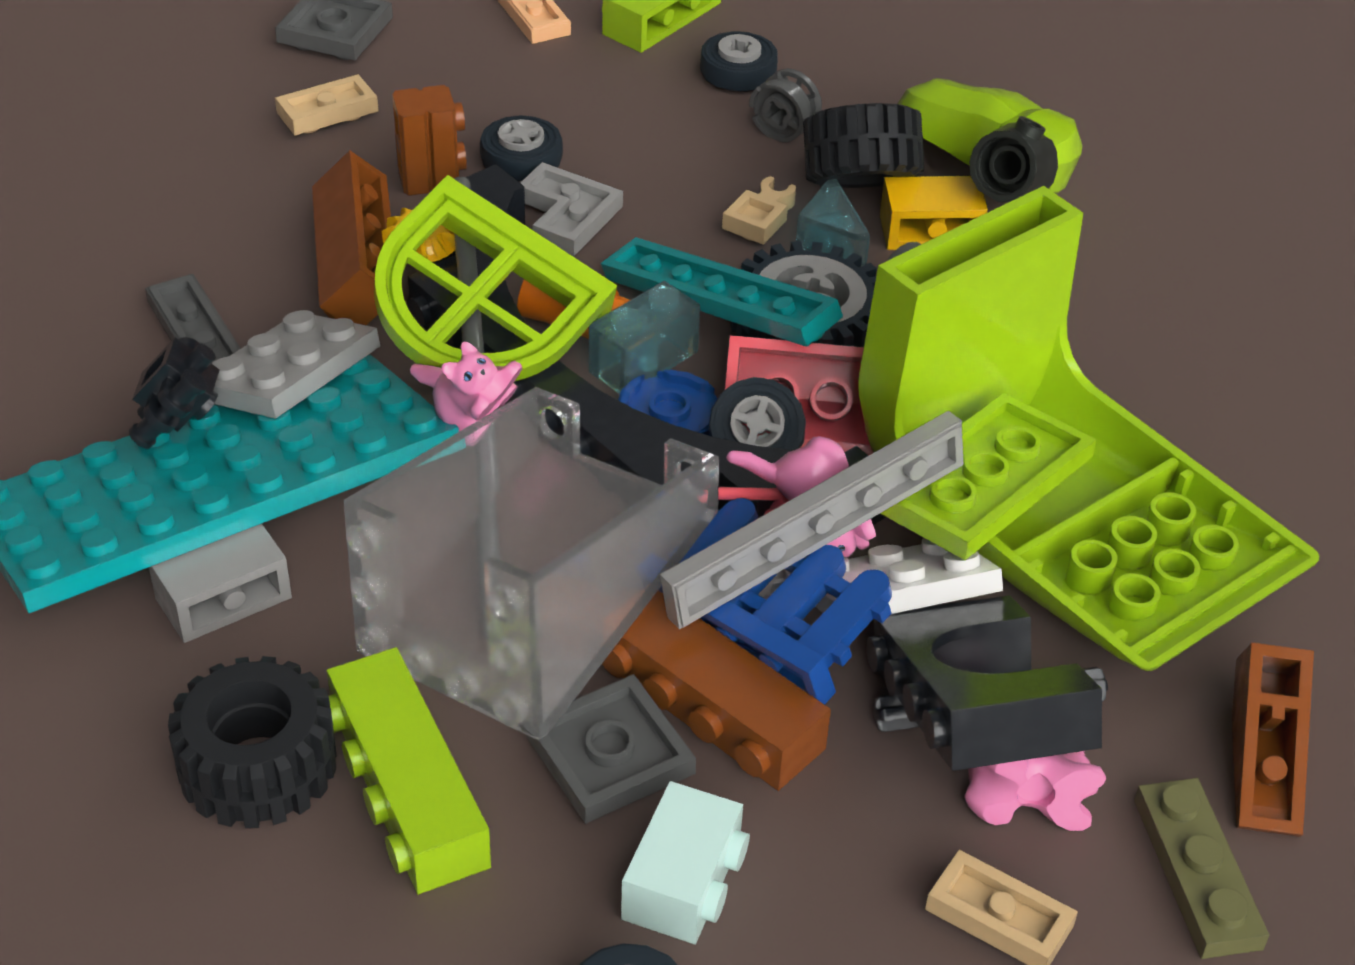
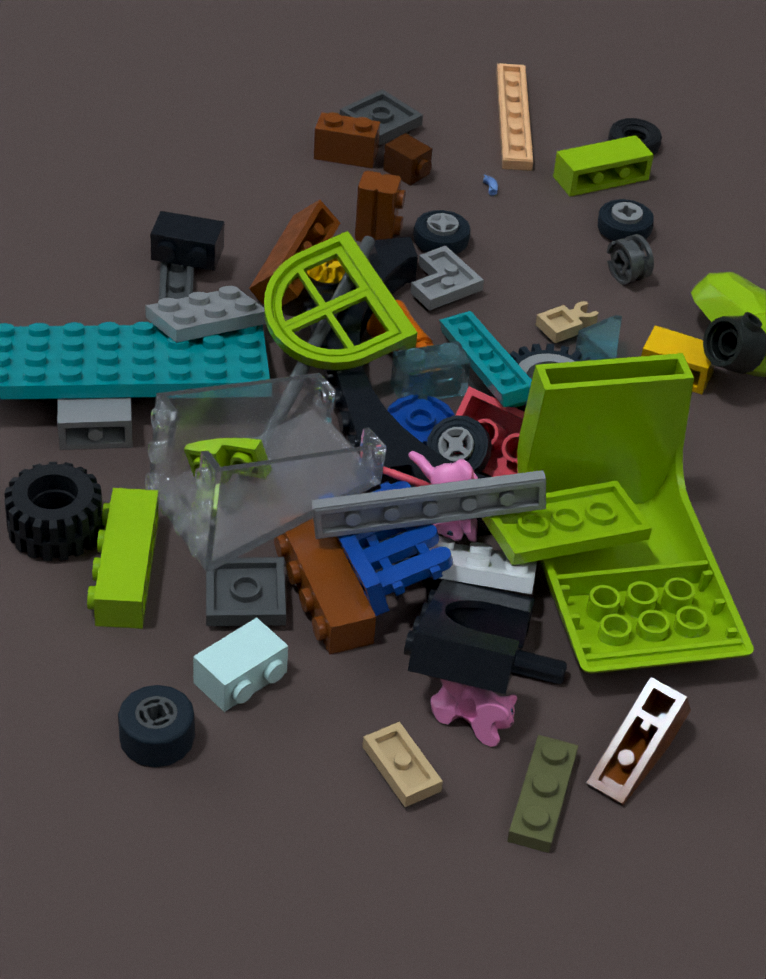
camera: 25 degrees right, 0 degrees up
(174, 390) = (128, 306): black piece -> none
(189, 268) = (187, 240): none -> black brick
(310, 58) = (346, 140): none -> dark orange brick
(326, 104) = (339, 167): tan plate -> none
(410, 62) = (407, 159): none -> reddish brown brick
(454, 563) = (226, 451): none -> lime slope
(468, 388) = (286, 358): bright pink animal -> none
(538, 68) = (493, 185): none -> light blue leg
(863, 144) = (651, 299): black tyre -> none

